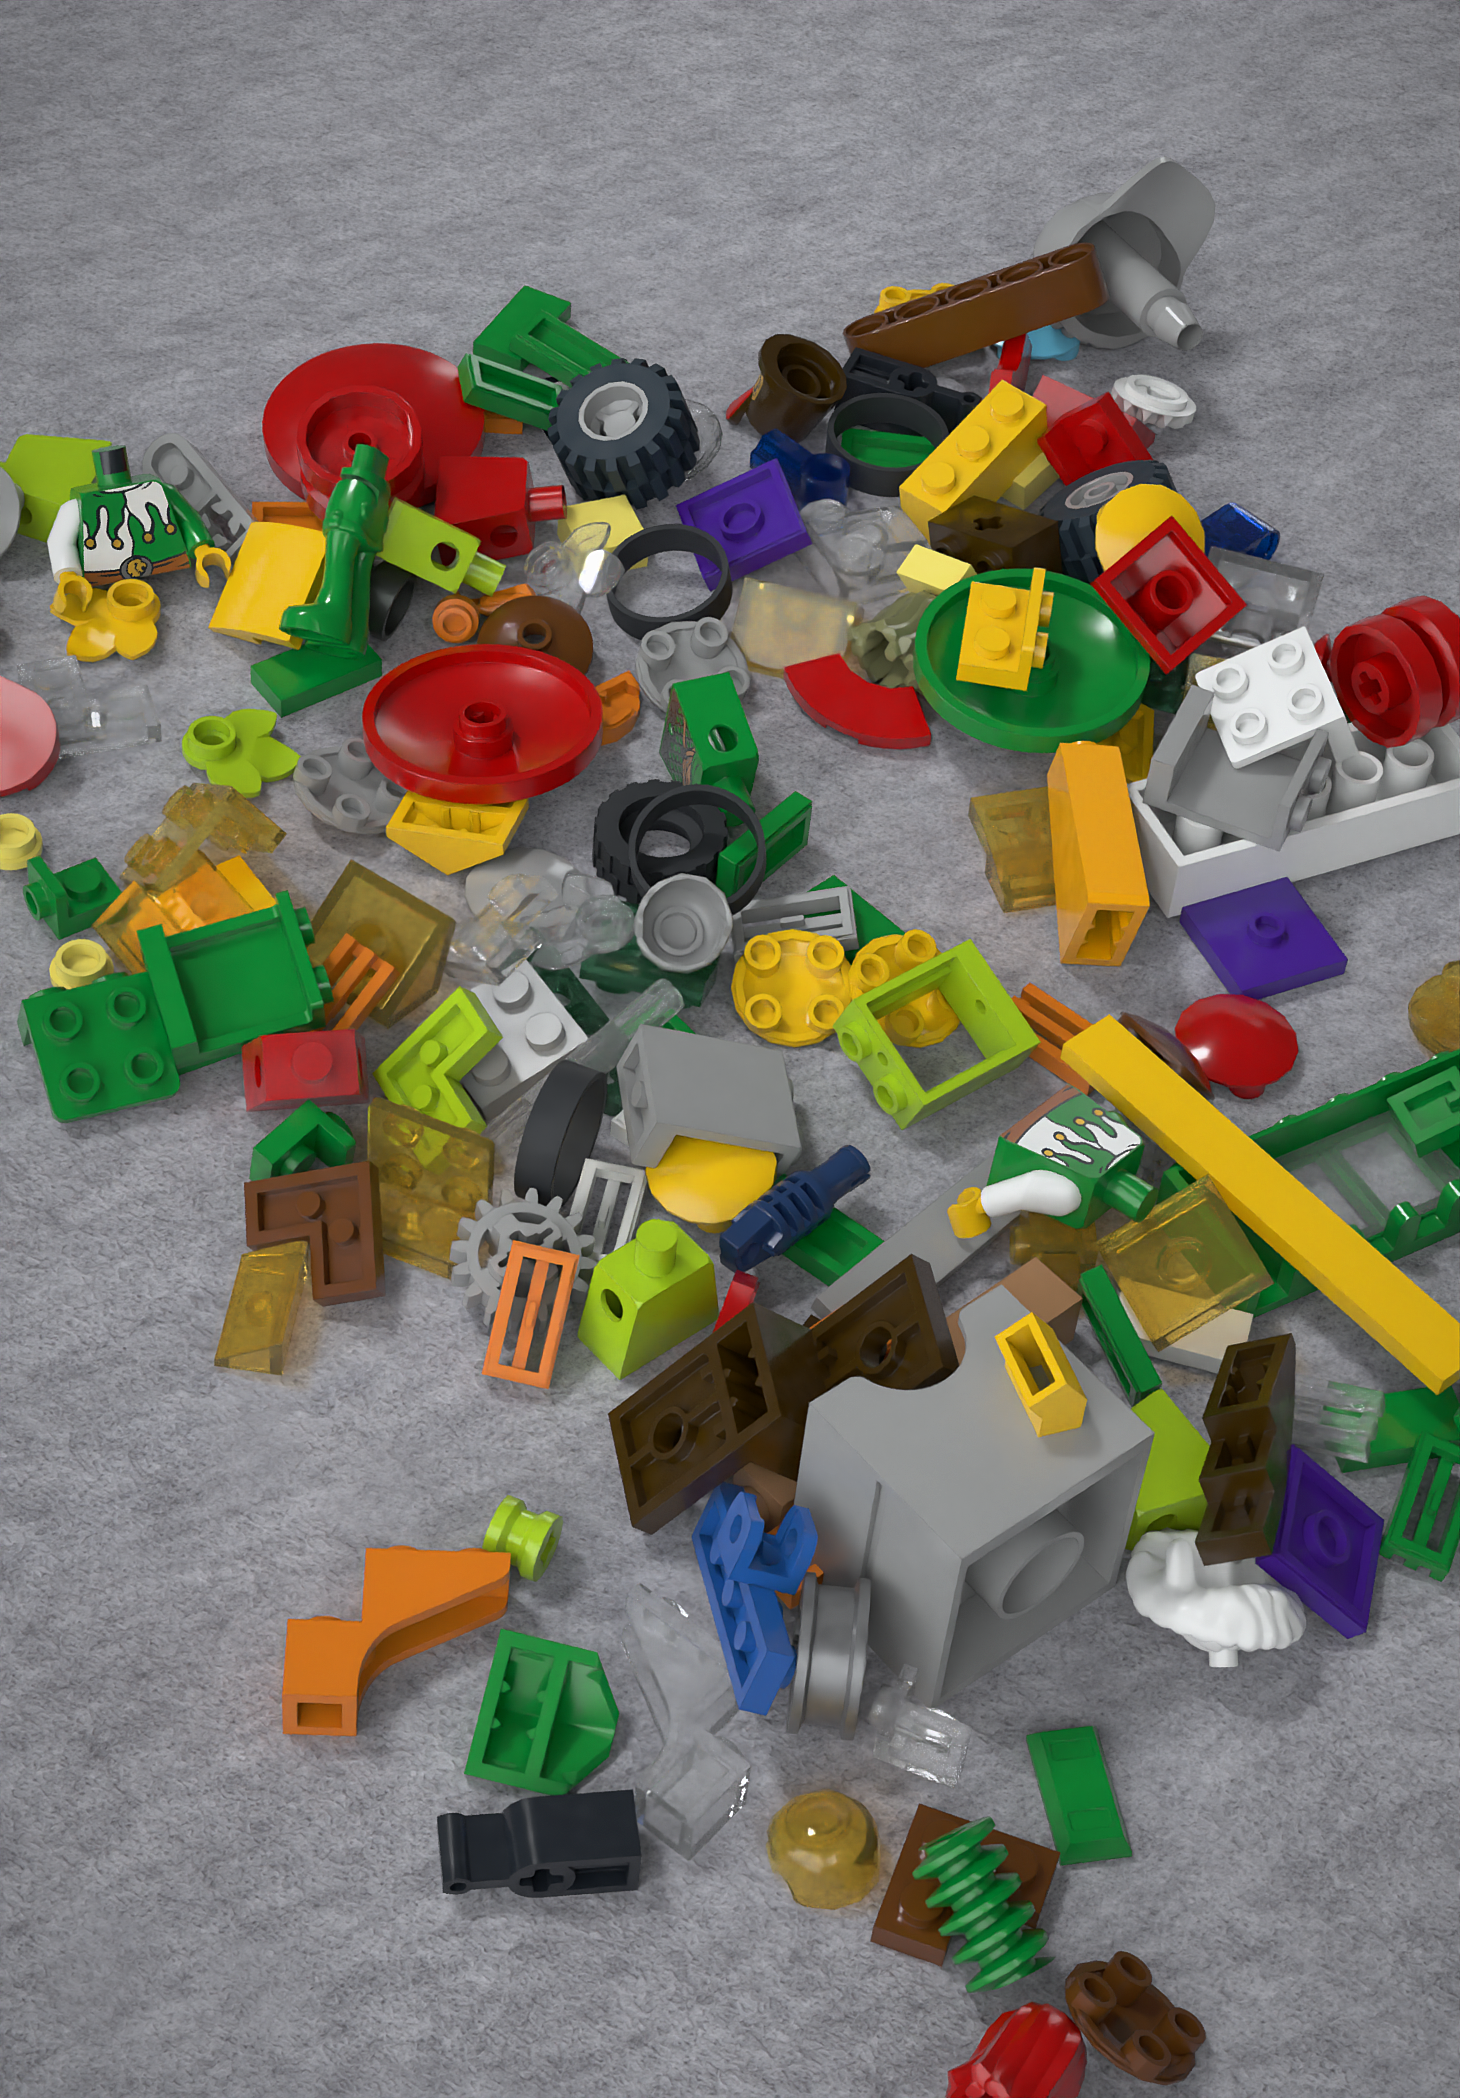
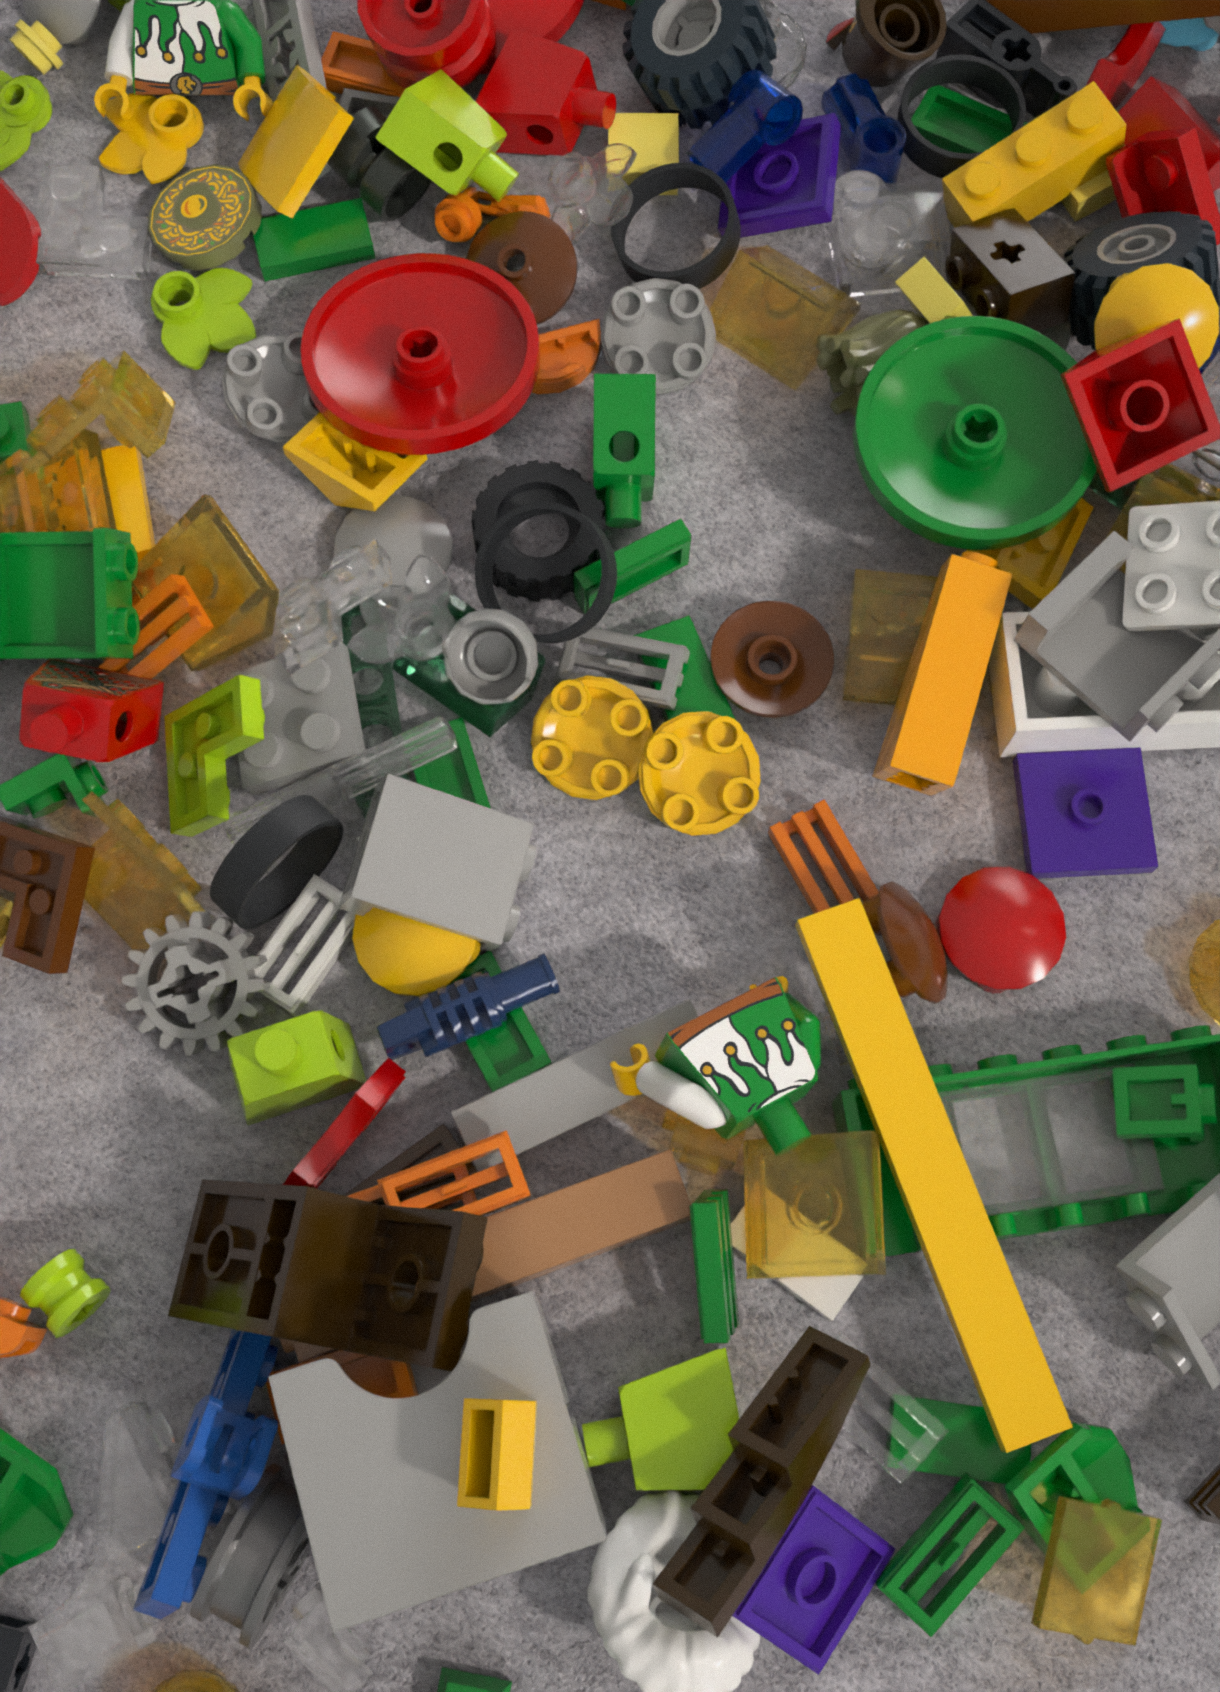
camera: 25 degrees right, 25 degrees up
(204, 671) = (204, 217): none -> tile
(353, 534) = (350, 122): green piece -> none
(517, 1371) = (190, 1013): orange tile -> none
(702, 476) = (757, 115): none -> clear blue piece
(855, 707) = (797, 421): red tile -> none
(928, 886) = (777, 634): none -> reddish brown dish
(978, 1003) = (755, 832): lime window -> none
(1002, 633) = (951, 399): yellow bracket -> none

